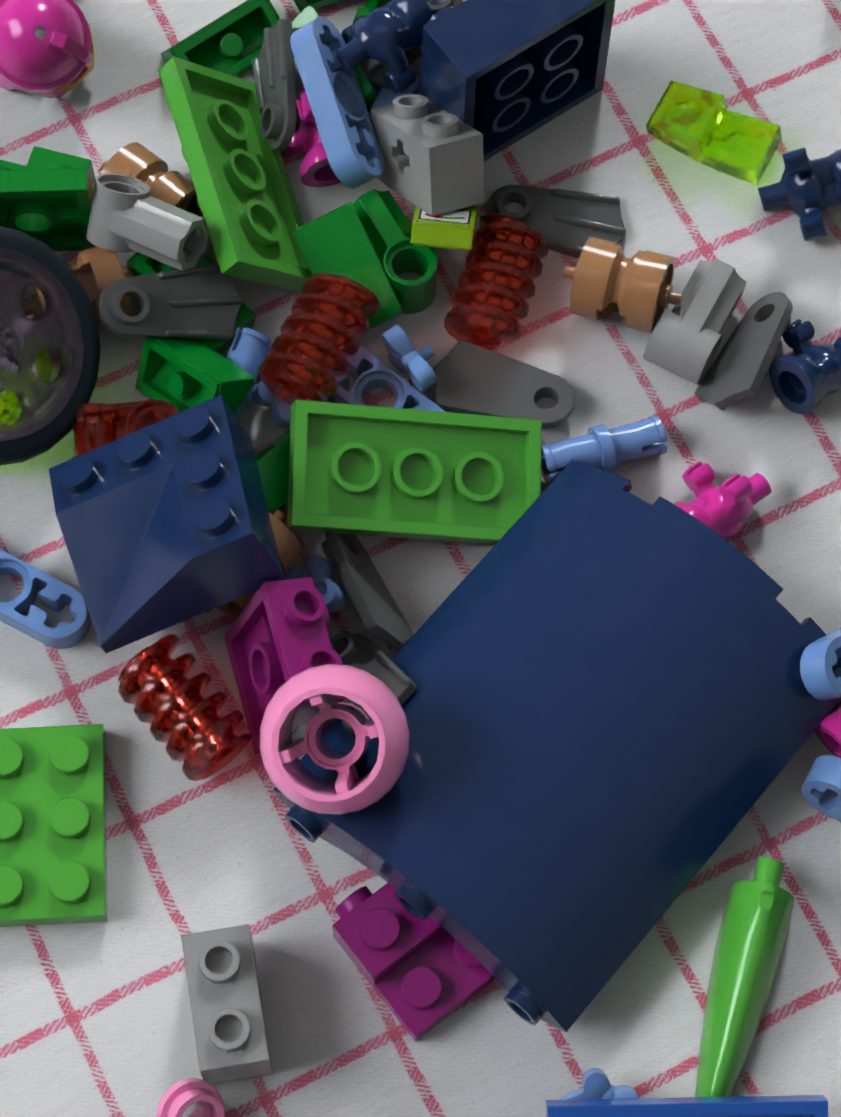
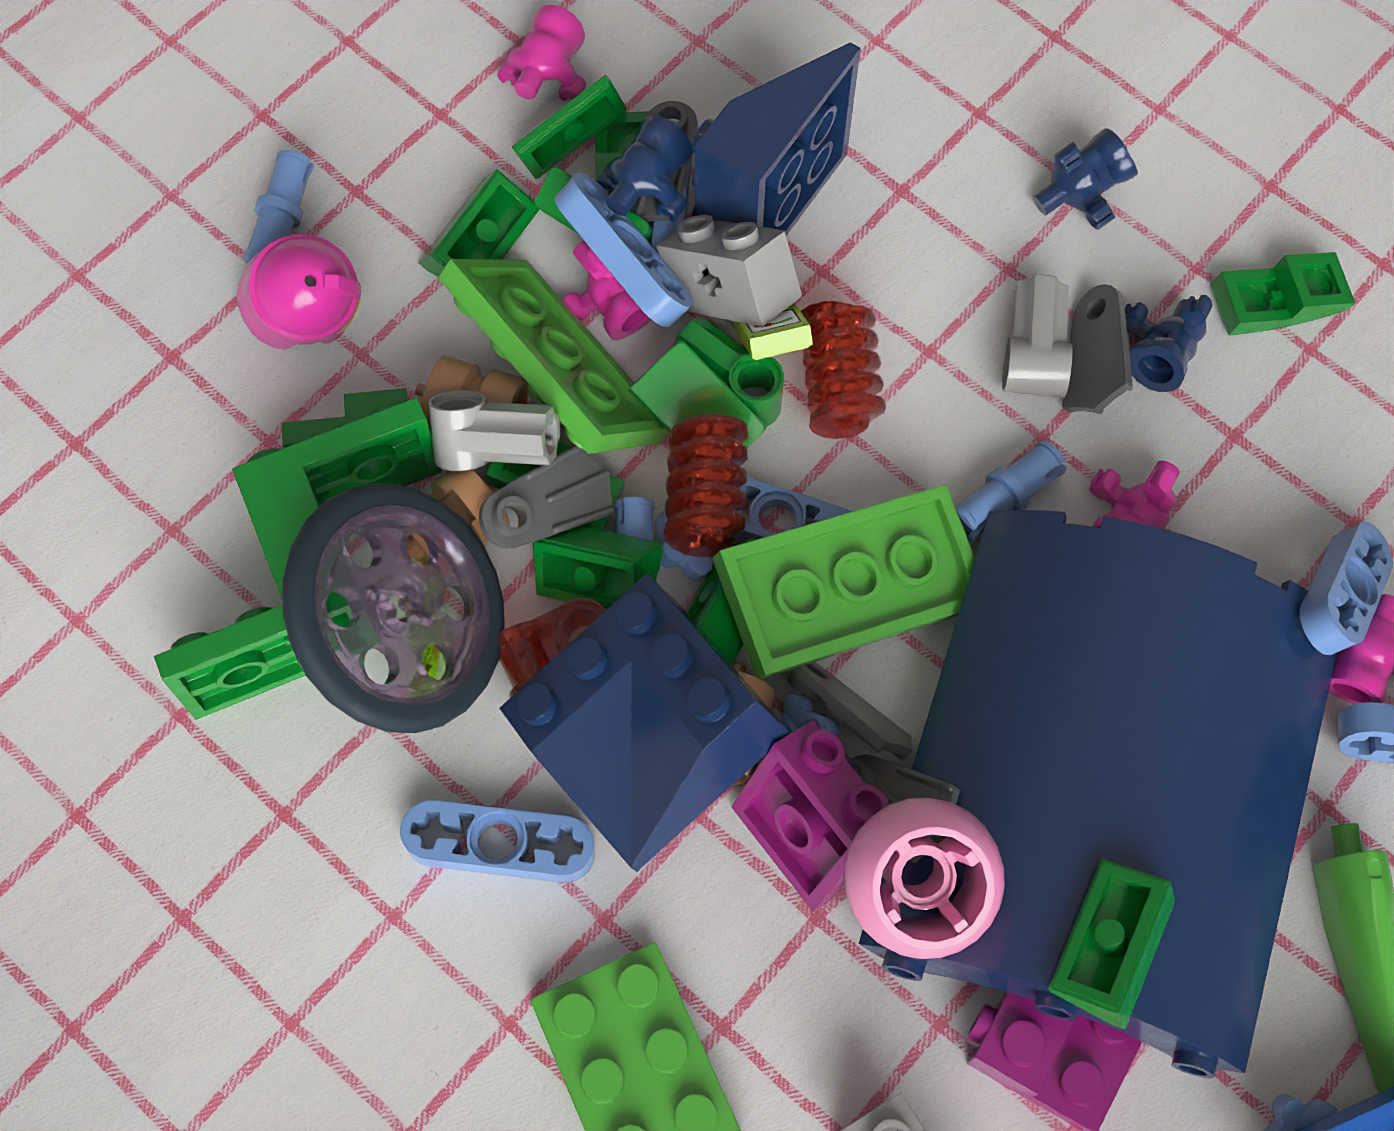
camera: 20 degrees left, 0 degrees up
(179, 709) = (728, 895): clear red piece -> none
(276, 85) = (551, 253): dark grey piece -> none
(408, 360) = (786, 470): medium blue piece -> none
(482, 862) = (1113, 942): none -> green slope
(496, 385) = (883, 467): dark grey piece -> none
(563, 215) = (886, 283): dark grey piece -> none
(611, 283) = (954, 329): medium nougat wheel -> none
(703, 129) = (957, 160): clear neon green slope -> none

